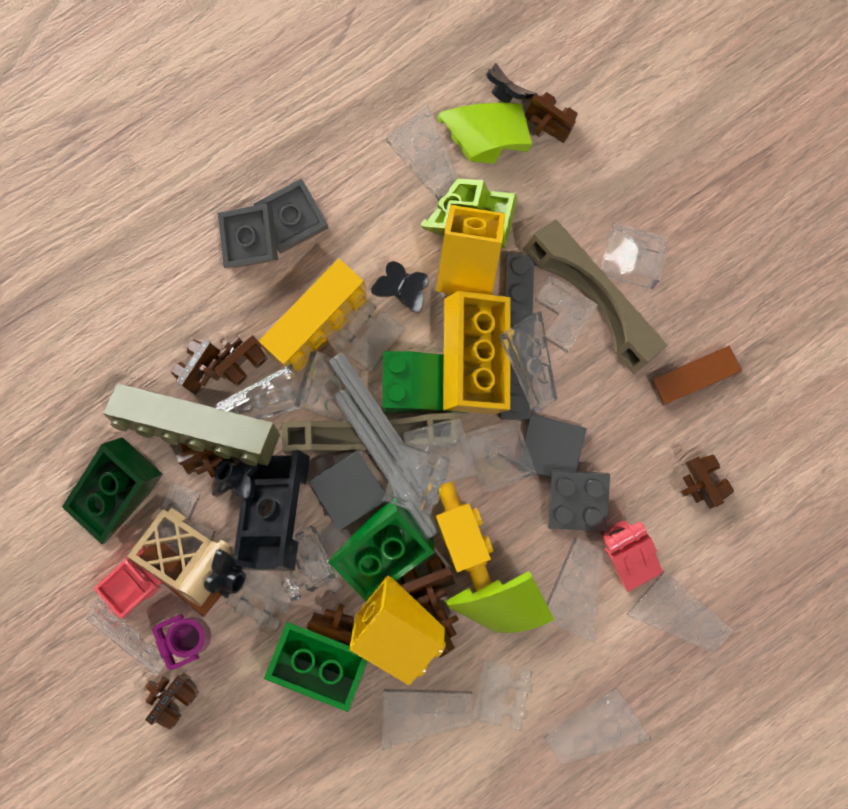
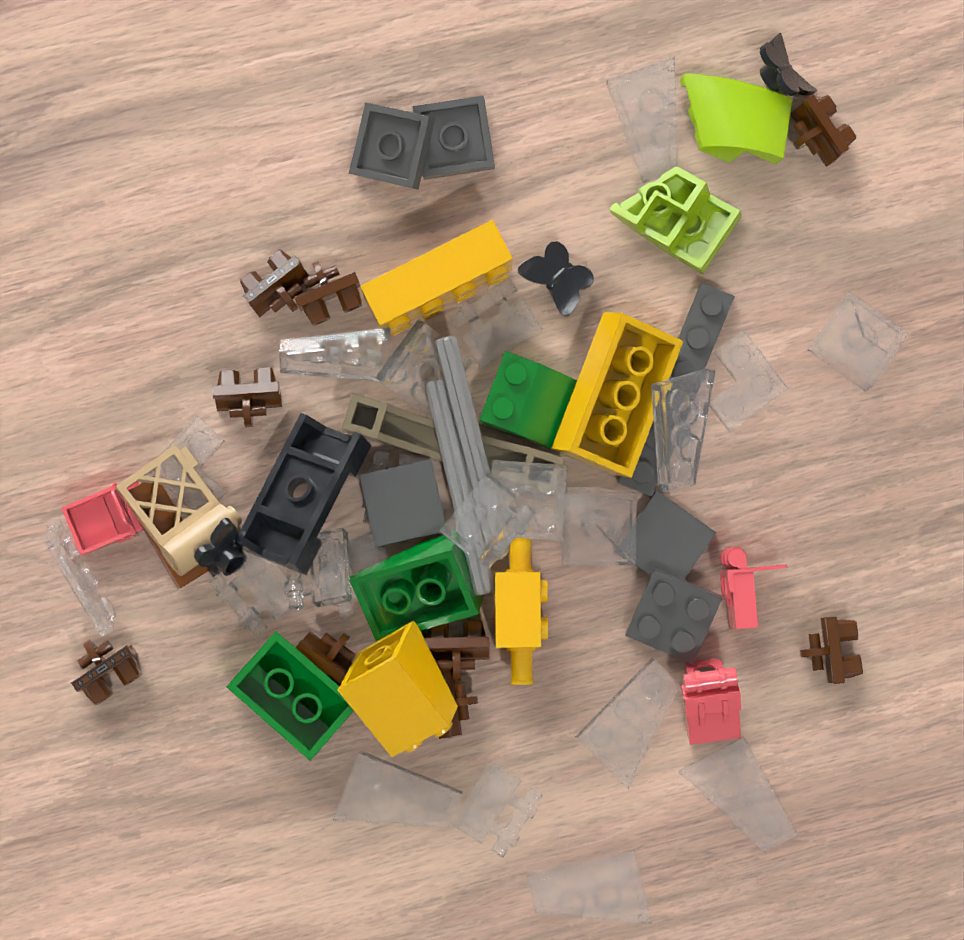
camera: 15 degrees right, 5 degrees up
(111, 488) = (120, 396): dark green slope -> none
(184, 639) = (148, 606): magenta piece -> none
(192, 424) = (244, 355): brick -> none
(234, 477) = (274, 437): black animal -> none
(470, 250) = (657, 265): yellow slope -> none
(505, 607) = (537, 709): lime slope -> none
(619, 462) = (739, 588): none -> coral piece
(632, 335) = (765, 307): dark tan arch -> none
(696, 375) = (875, 517): dark orange tile -> none

